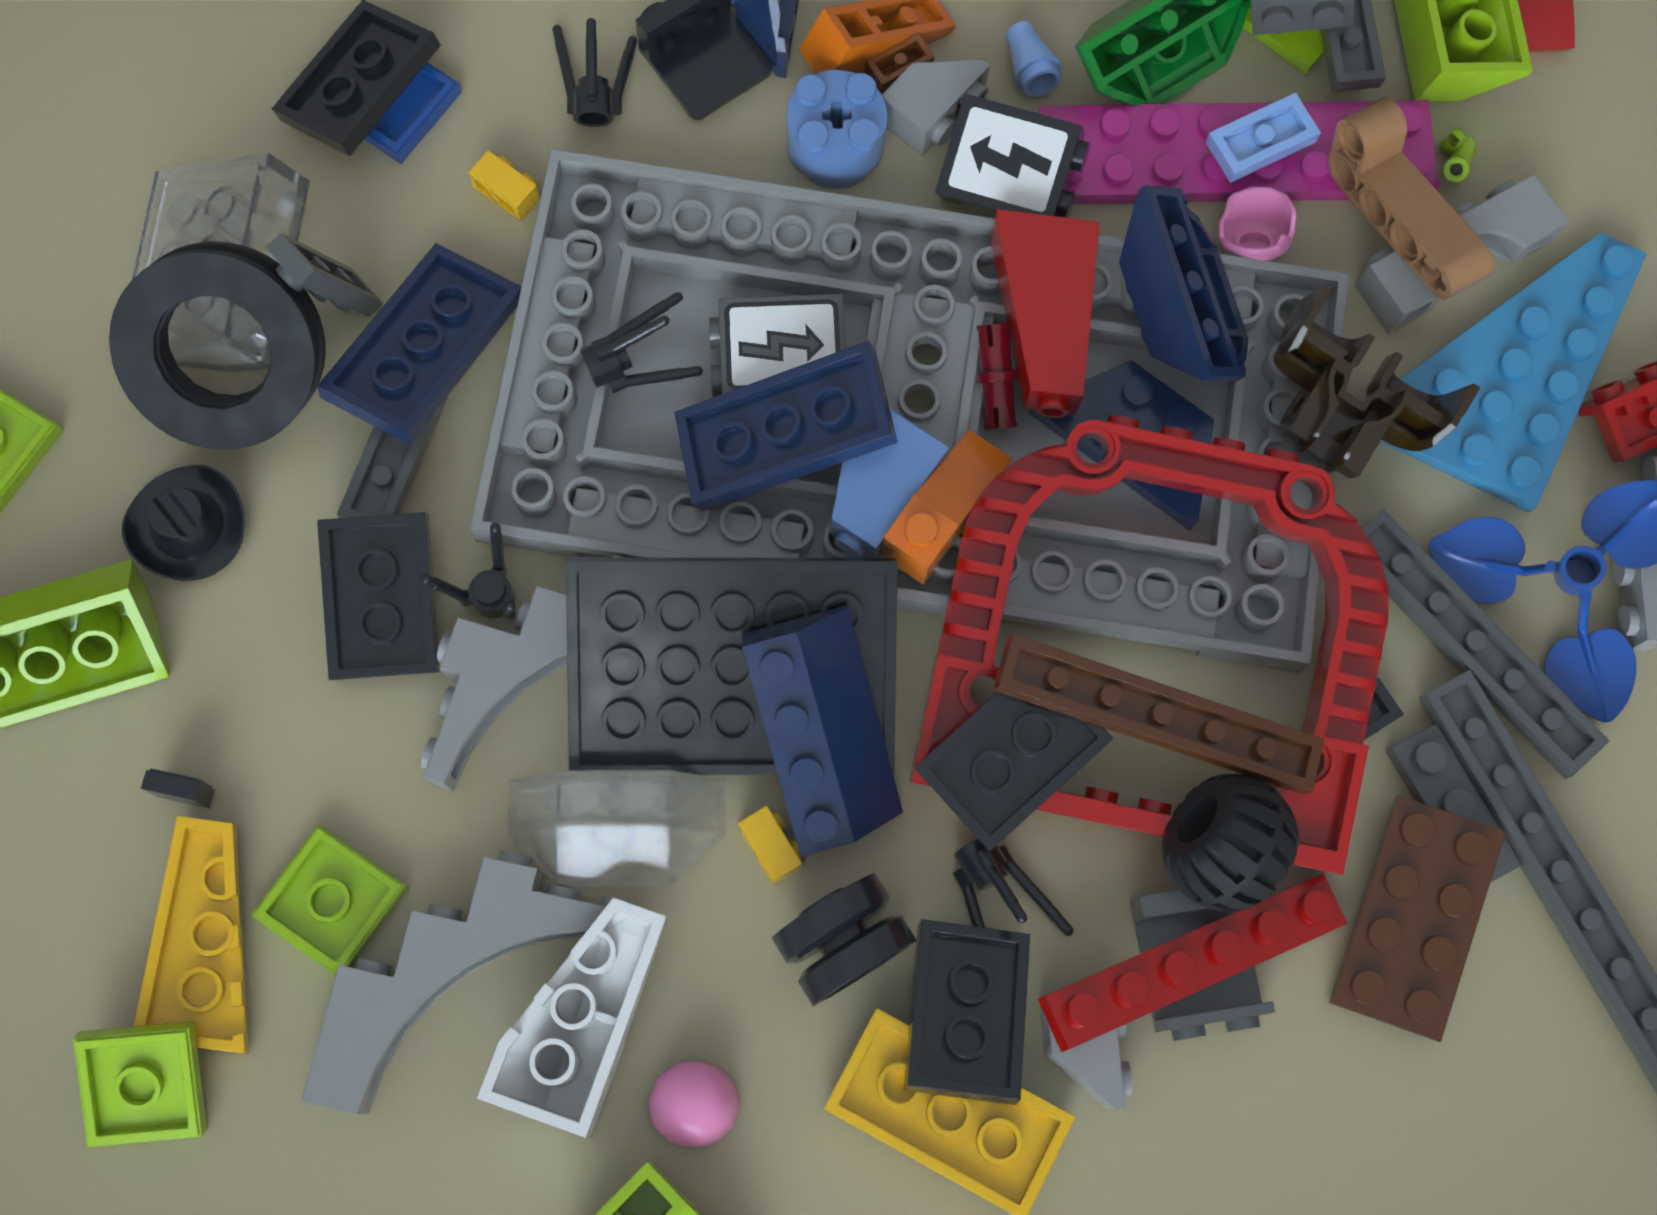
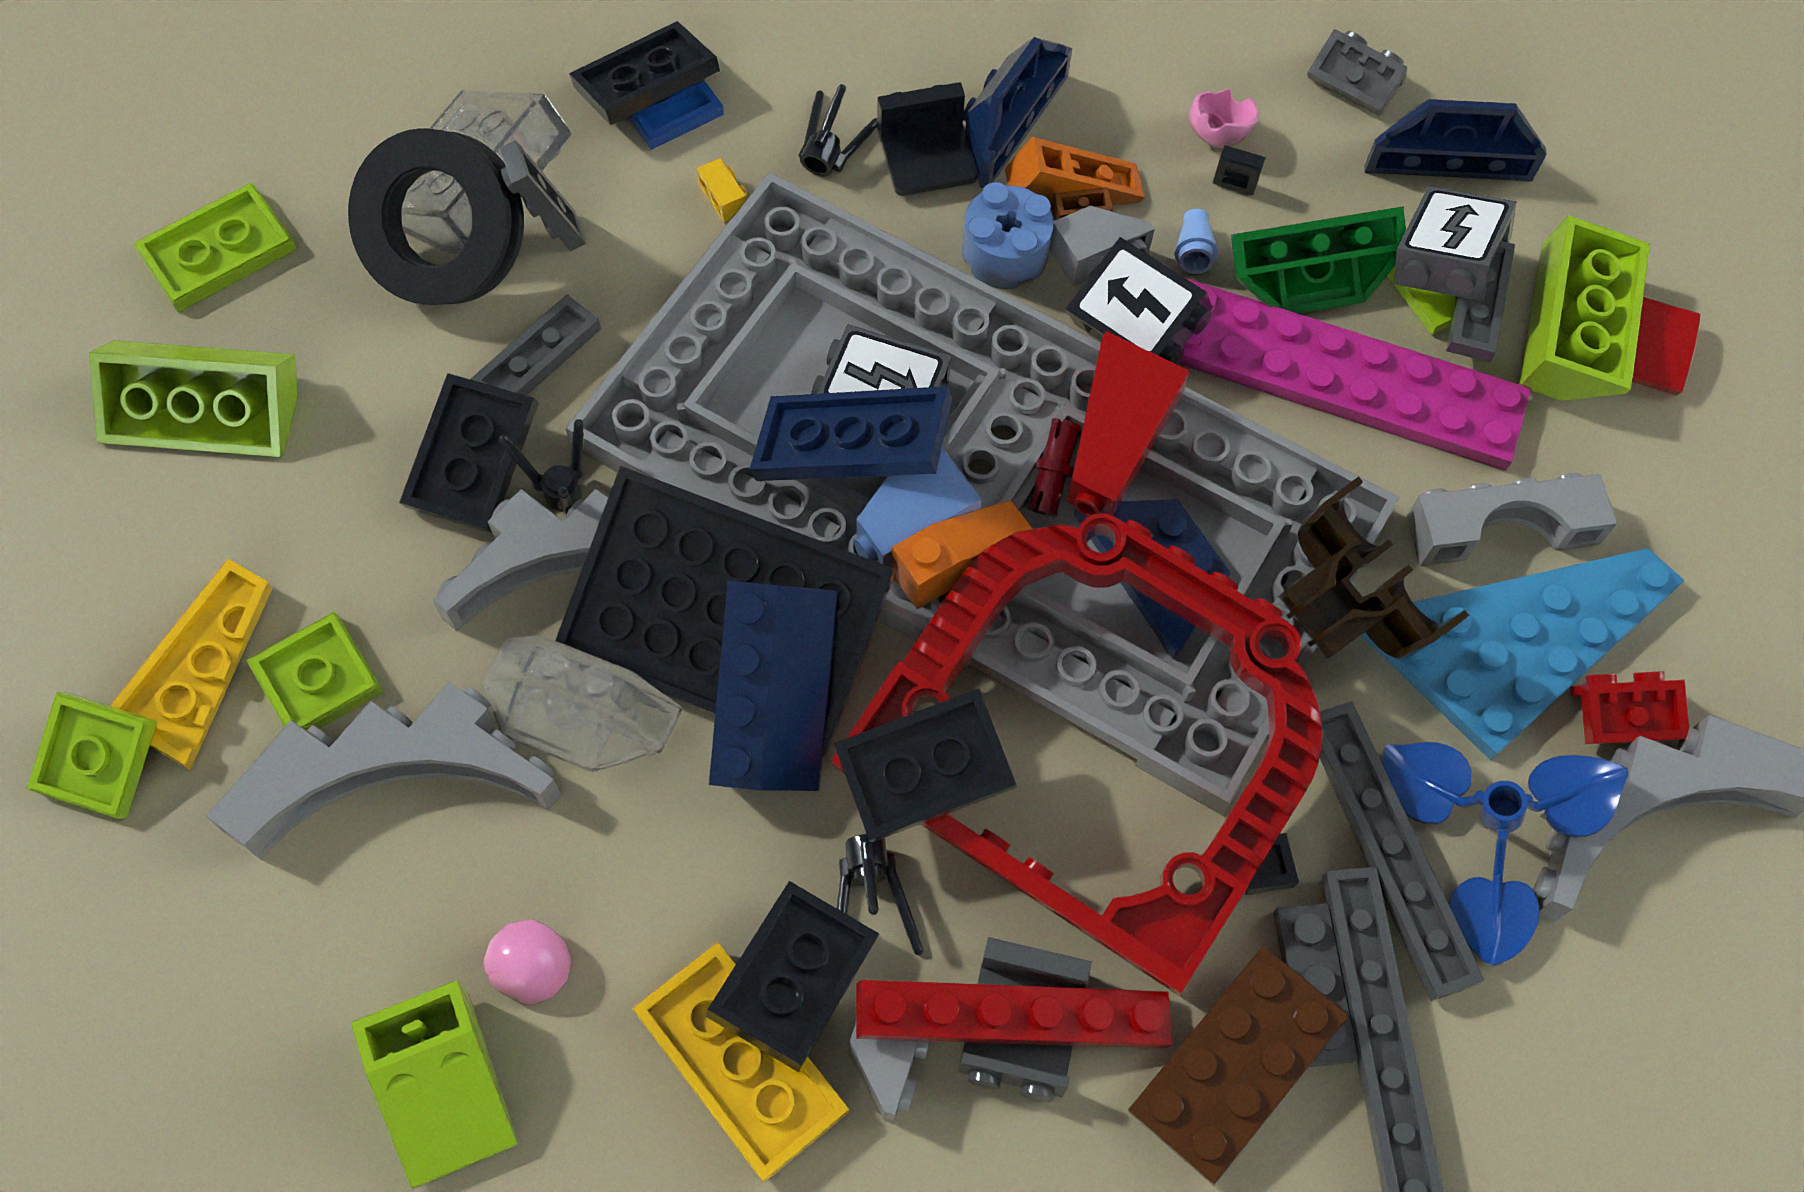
camera: 25 degrees right, 10 degrees down
(177, 788) = (241, 539): black tile -> none
(185, 524) = (350, 348): black hat -> none
(420, 343) = (595, 276): dark blue plate -> none
(572, 1034) = (450, 857): white wedge -> none
(608, 357) = (737, 337): black plant -> none
(769, 844) = (692, 773): yellow piece -> none
(839, 932) = (712, 867): black wheel -> none
(1158, 714) = (1065, 778): reddish brown plate -> none
(1181, 289) = (1241, 448): dark blue wedge -> none
(1230, 842) = (1085, 918): black wheel -> none
(1257, 224) = (1335, 431): bright pink hair -> none
(1262, 137) = (1366, 362): light blue plate -> none
(1402, 203) = (1467, 449): medium nougat beam -> none
(1462, 153) = (1541, 441): lime arm -> none

